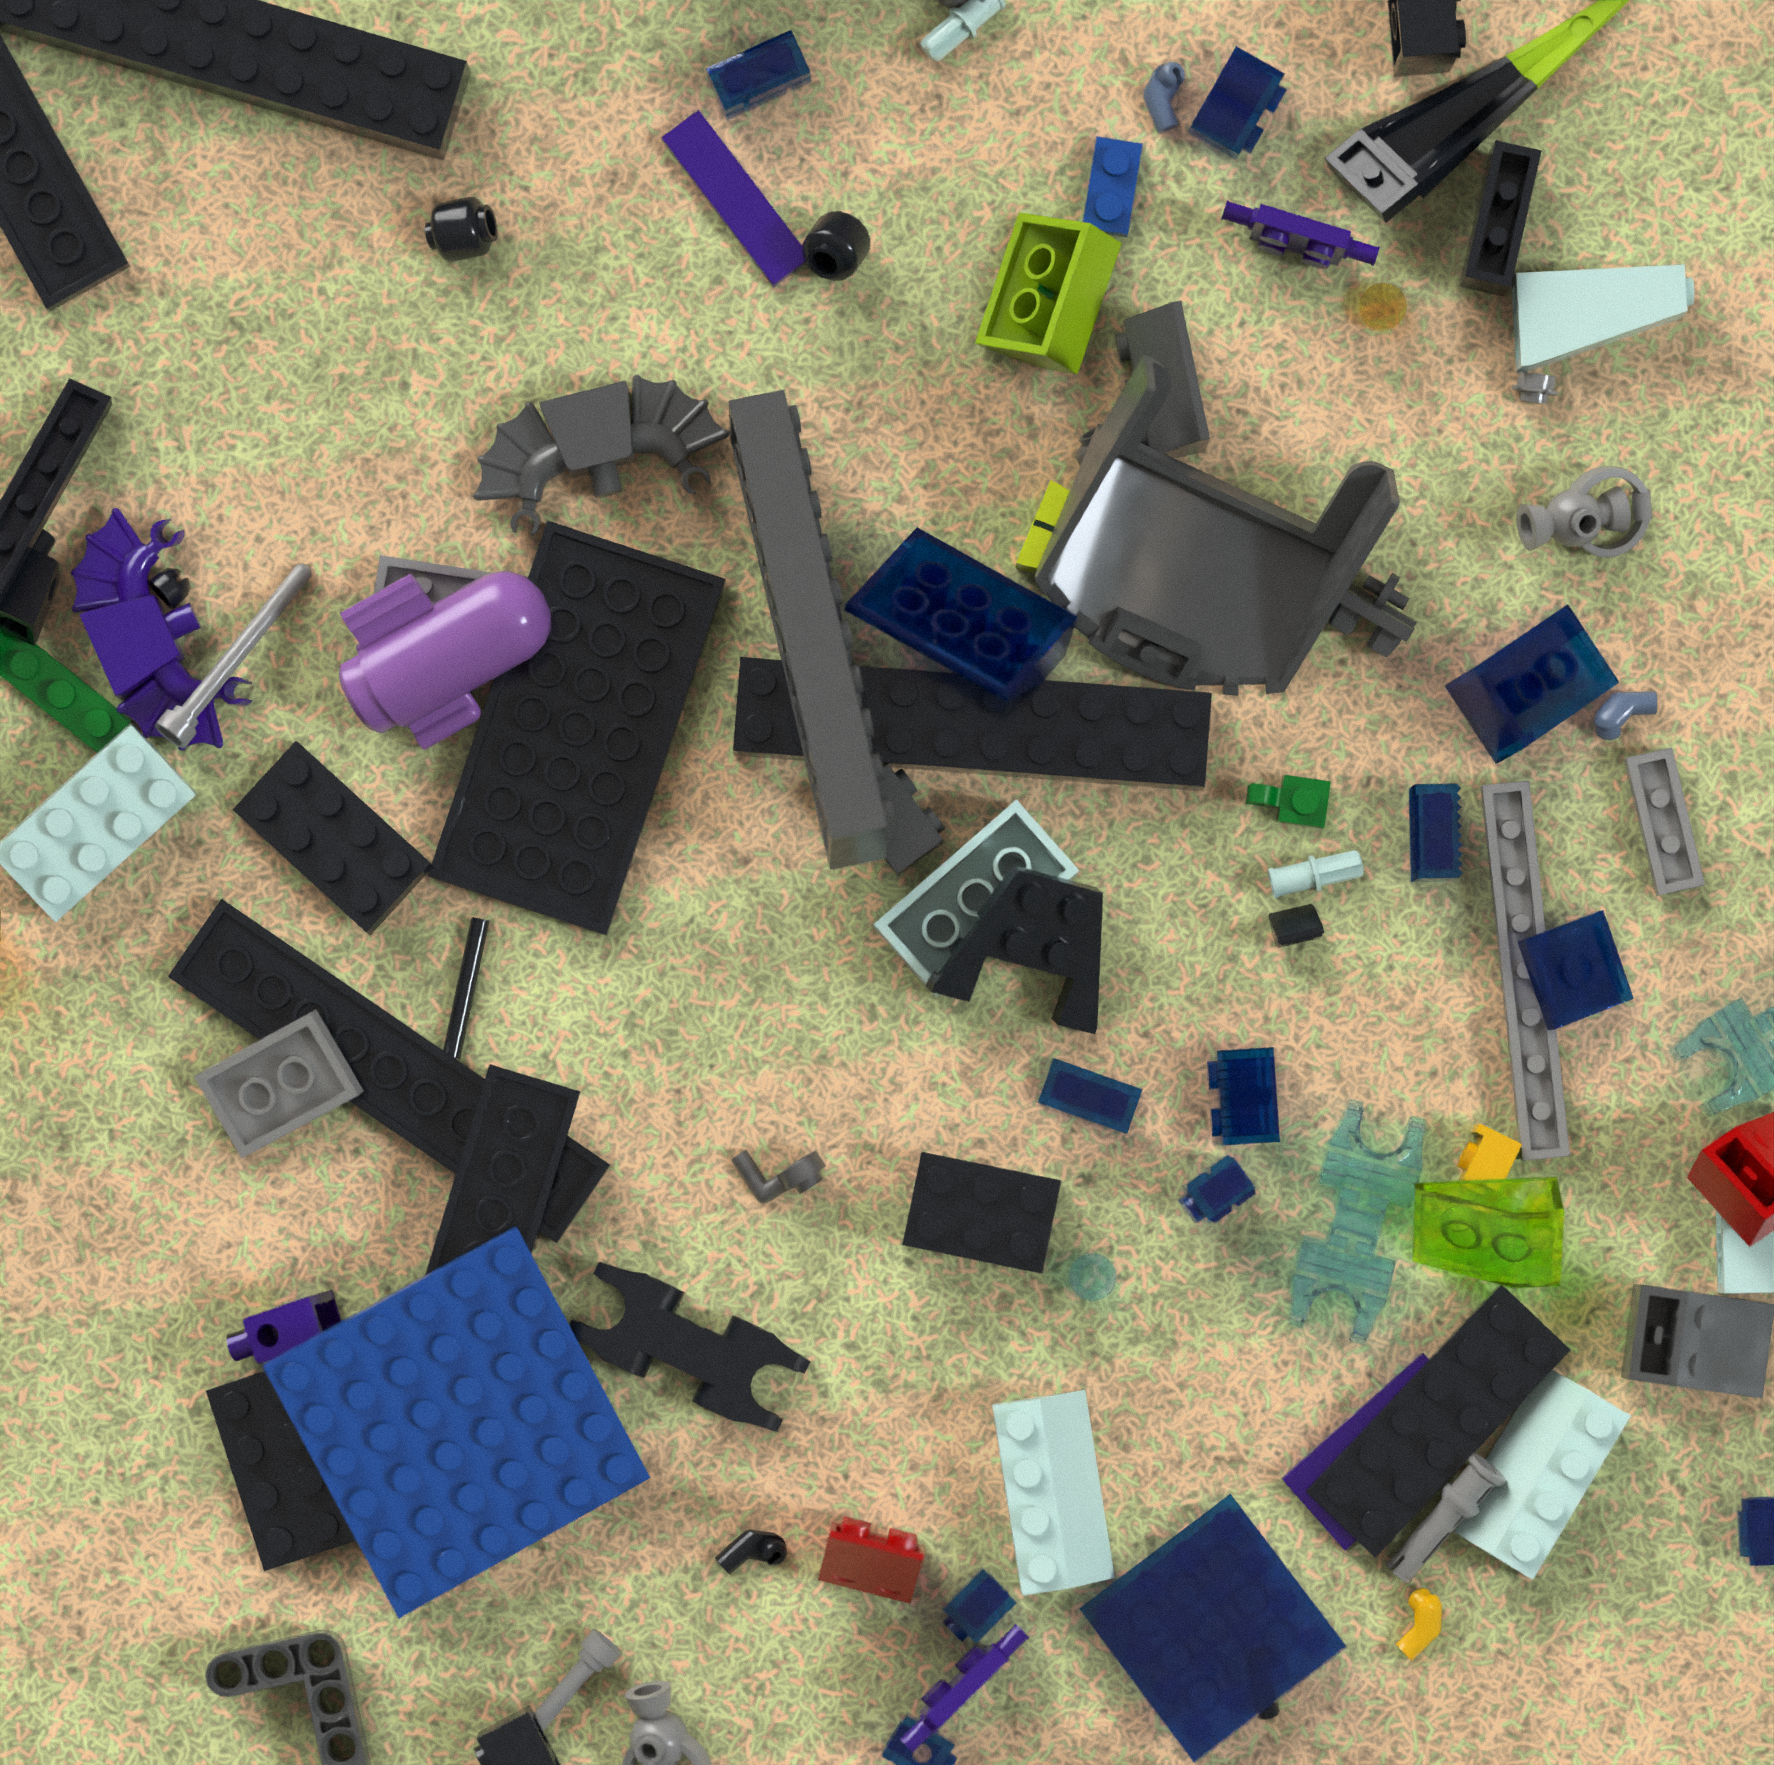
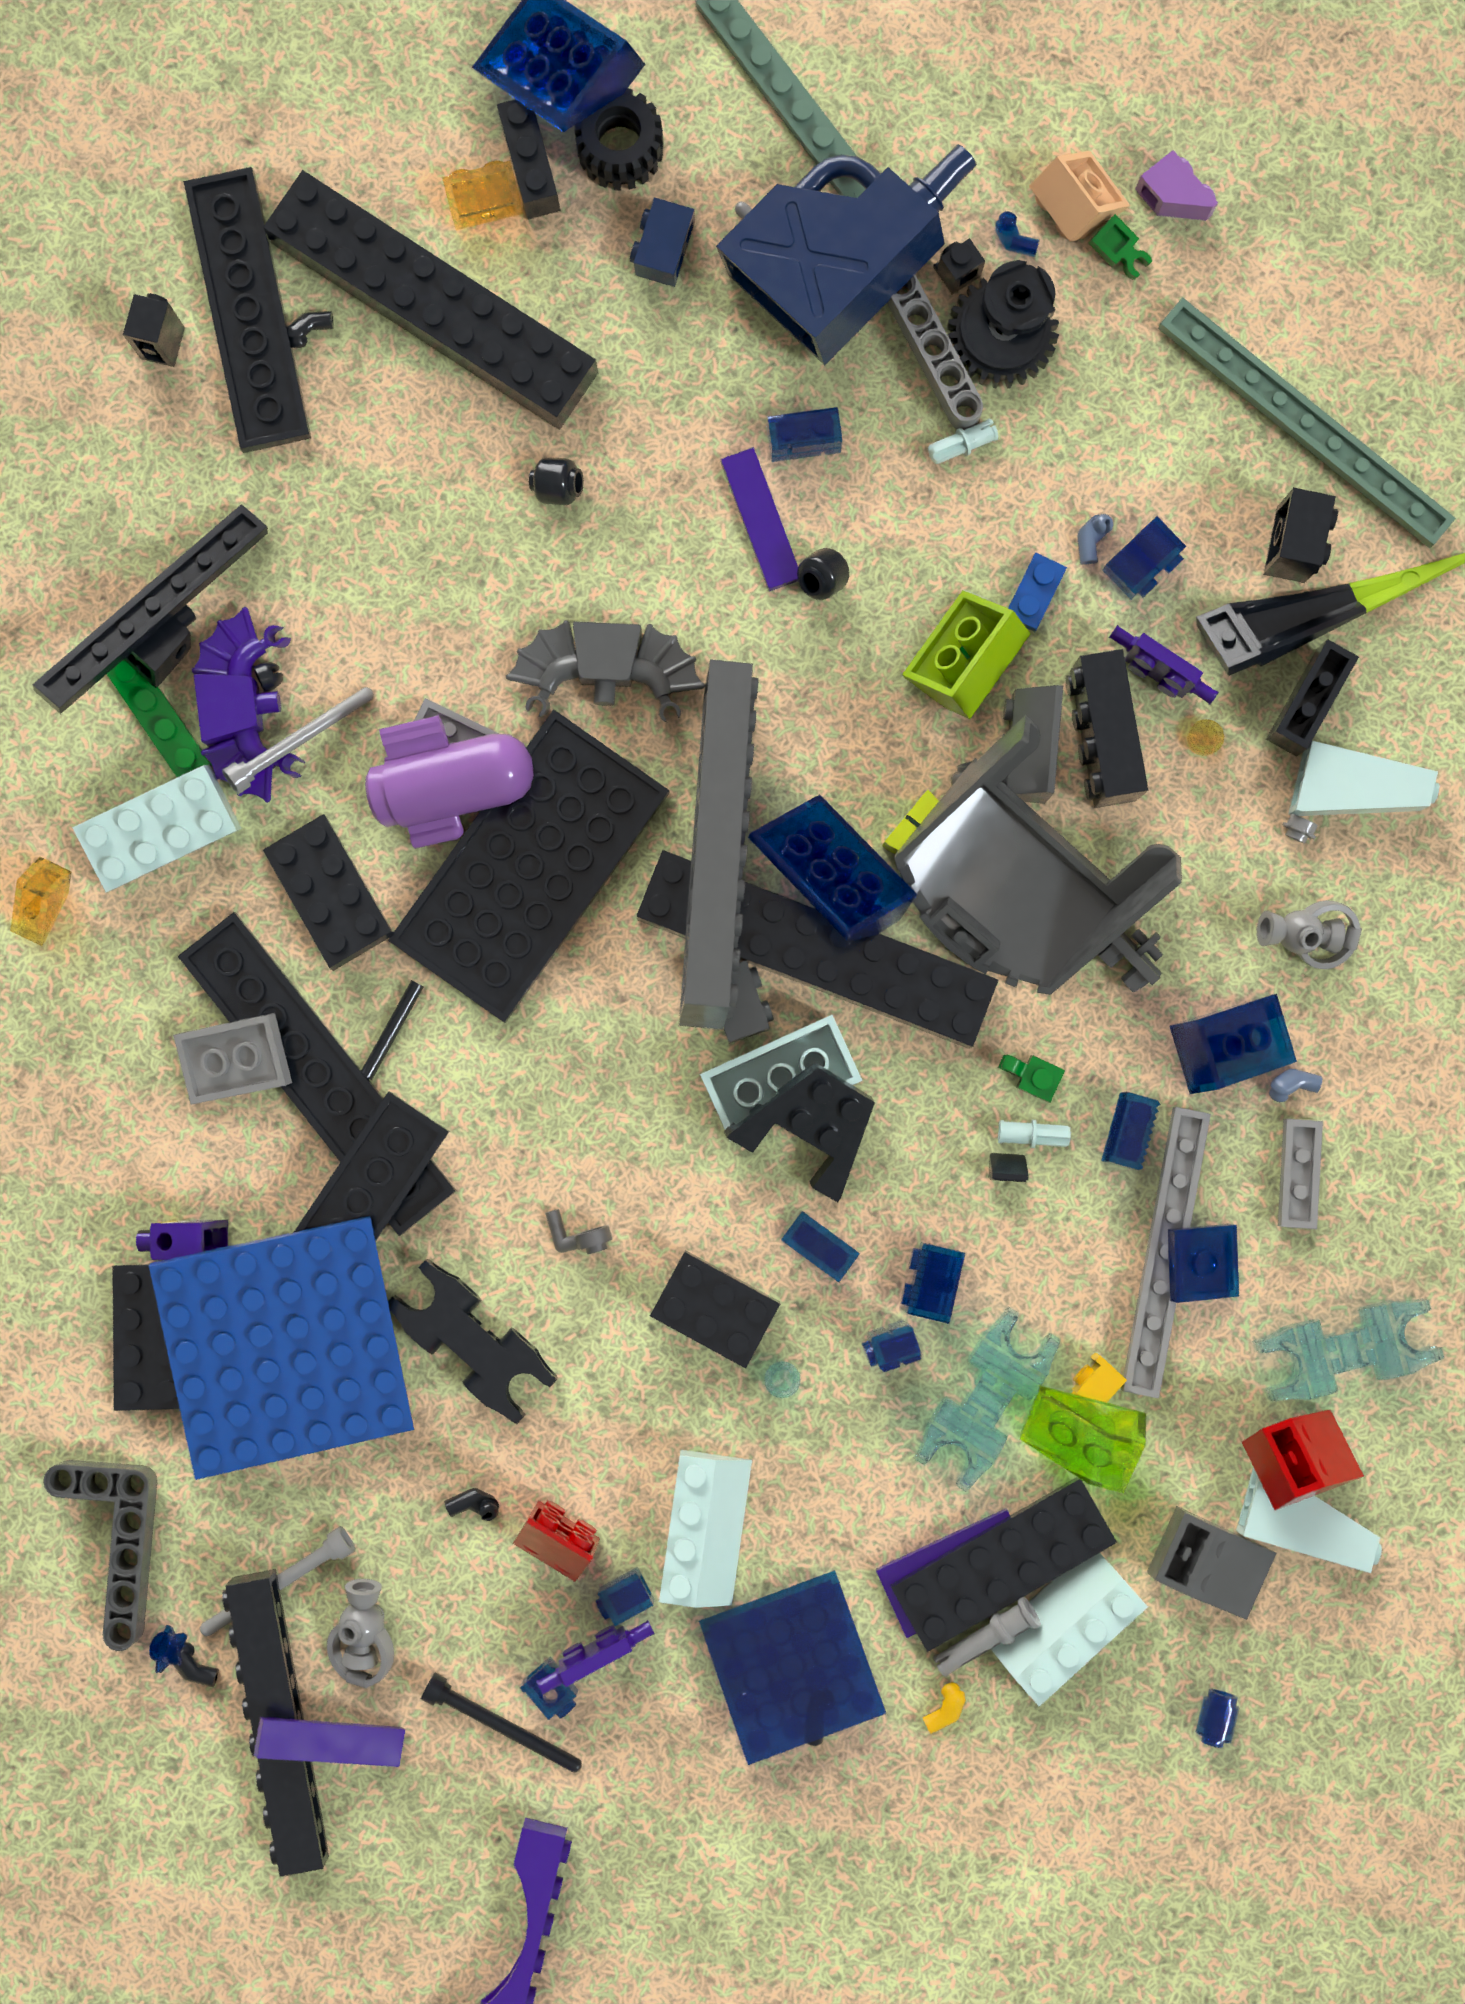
camera: 15 degrees right, 0 degrees up
(78, 123) = (306, 323): none -> black arm
(1253, 335) = (1107, 729): none -> black brick

